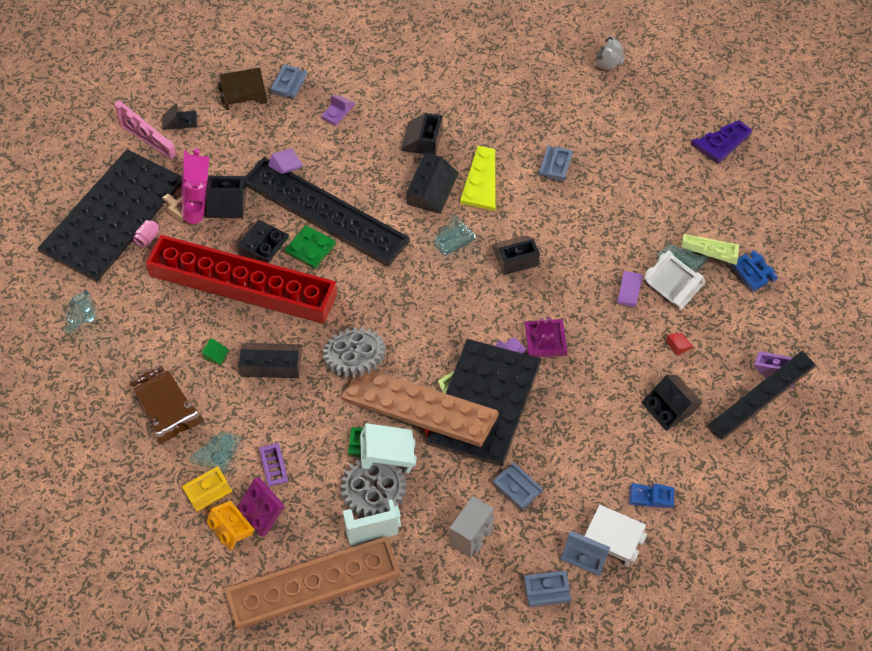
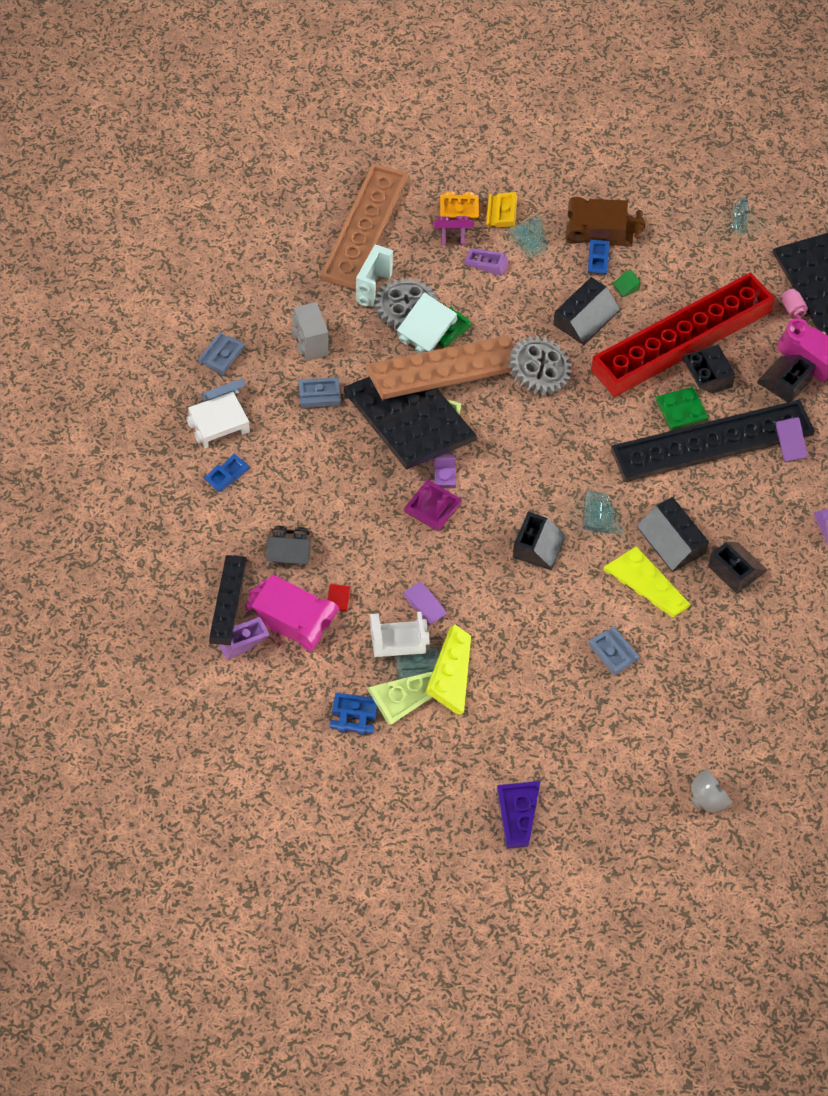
camera: 125 degrees right, 0 degrees up
(203, 389) = (598, 257): none -> blue slope
(667, 235) = (451, 671): none -> neon yellow wing
(724, 357) = (291, 611): none -> dark pink piece

